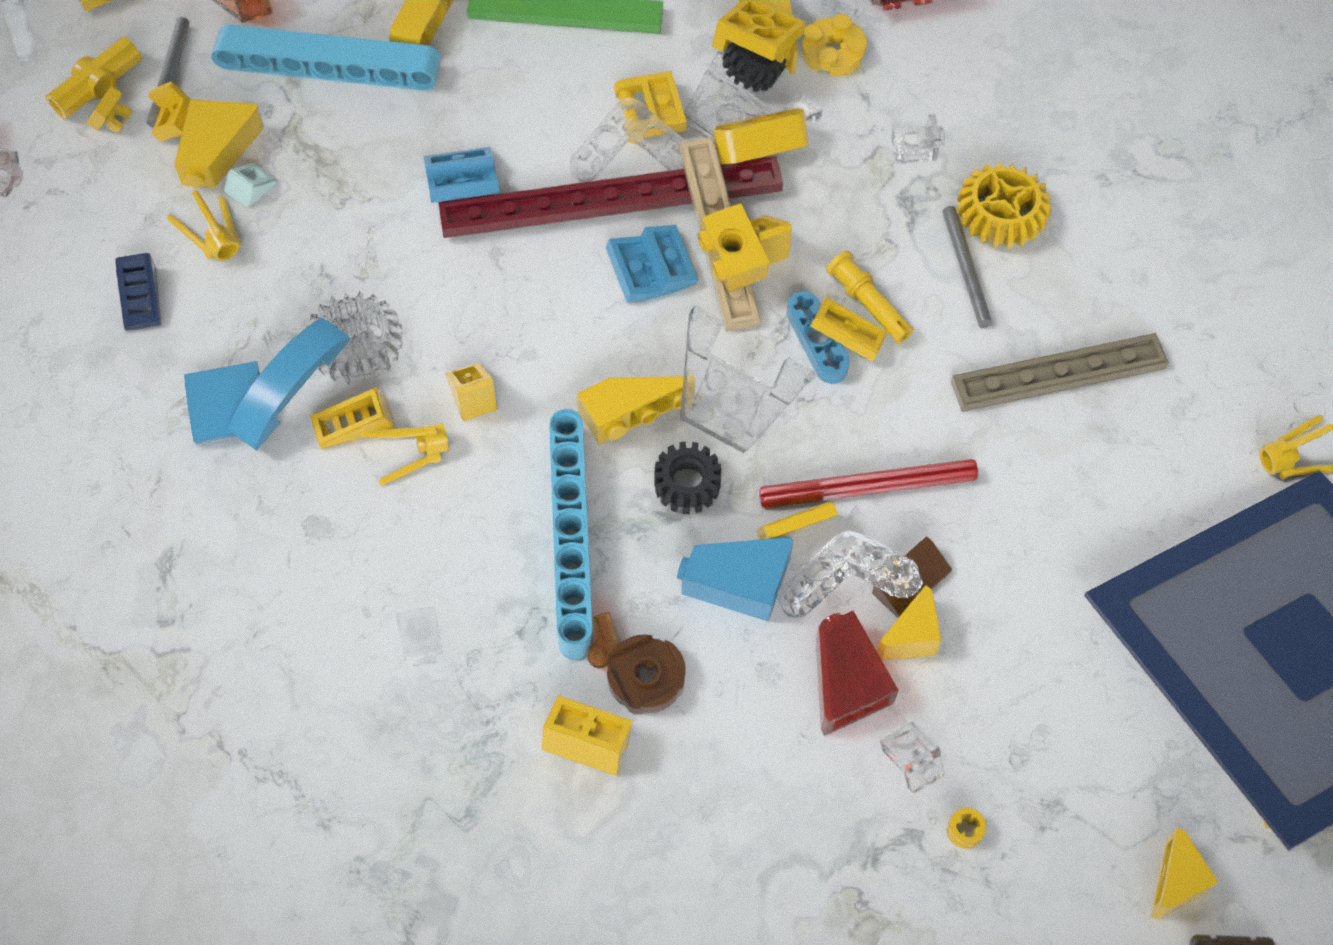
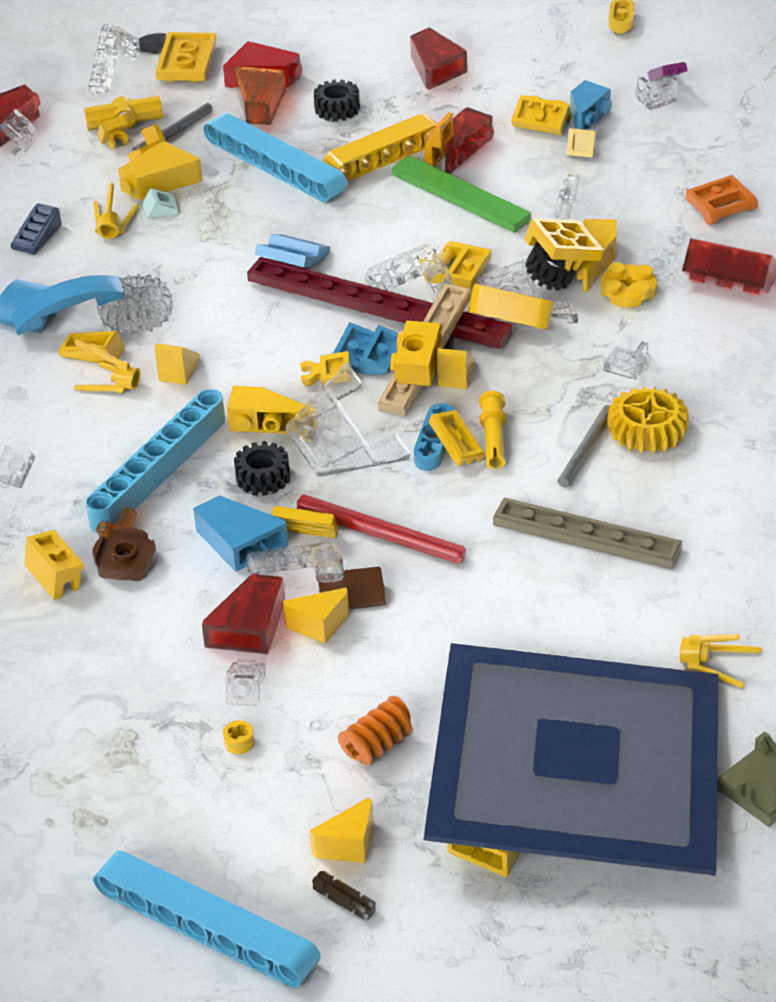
camera: 40 degrees right, 20 degrees down
(644, 309) = (326, 369): none -> yellow plate
(1098, 737) = (377, 731): none -> orange piece

